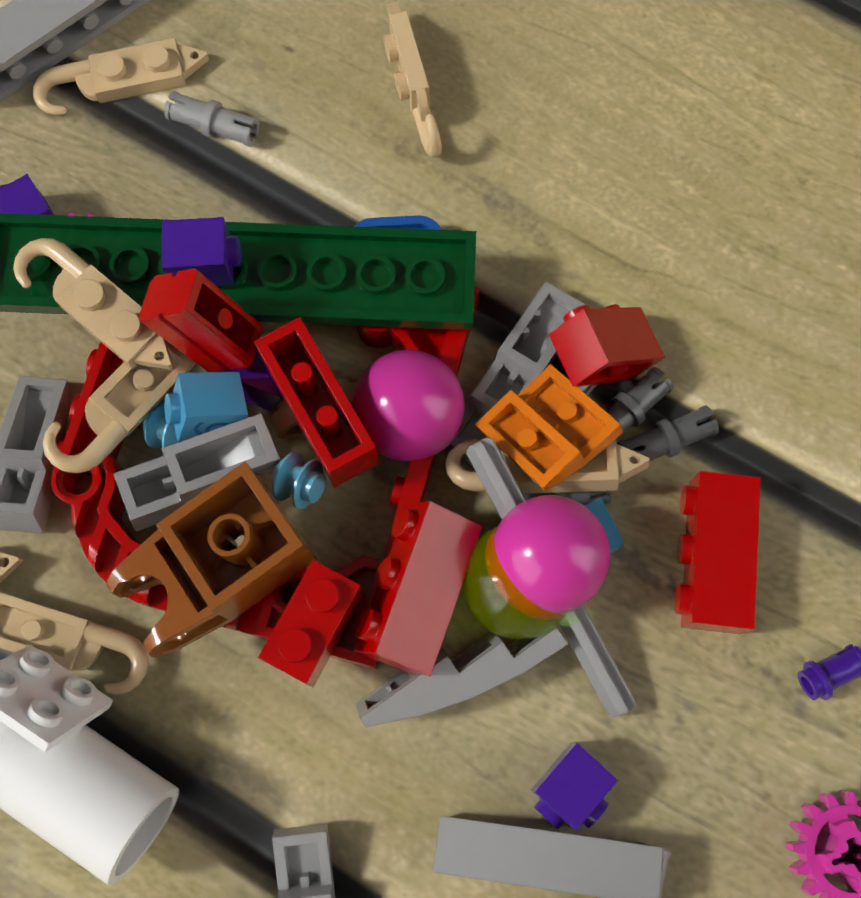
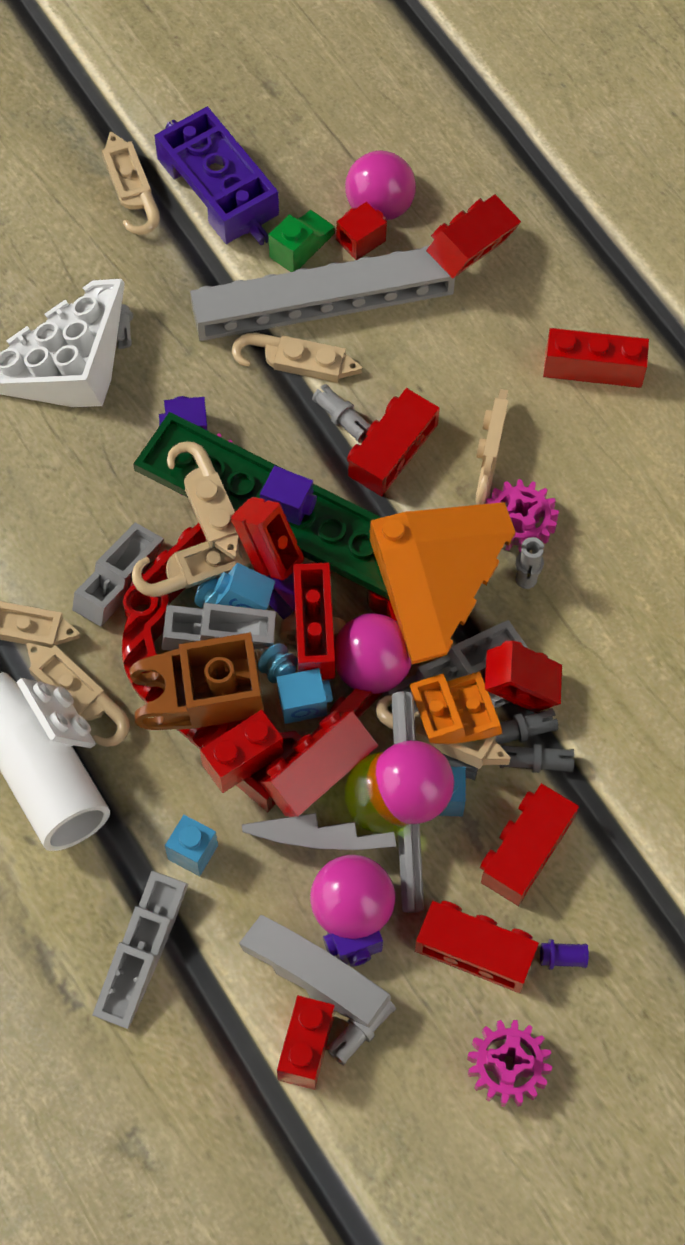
camera: 25 degrees right, 10 degrees down
(290, 125) = (392, 441): none -> red brick
(305, 773) = (191, 845): none -> dark azure brick
(353, 506) = (303, 695): none -> dark azure brick
(436, 260) = (435, 568): none -> orange slope
(491, 147) = (525, 510): none -> dark pink gear
(538, 198) = (529, 563): none -> light grey pin
(549, 742) = (352, 897): none -> dark pink piece
(728, 717) = (476, 945): none -> red brick

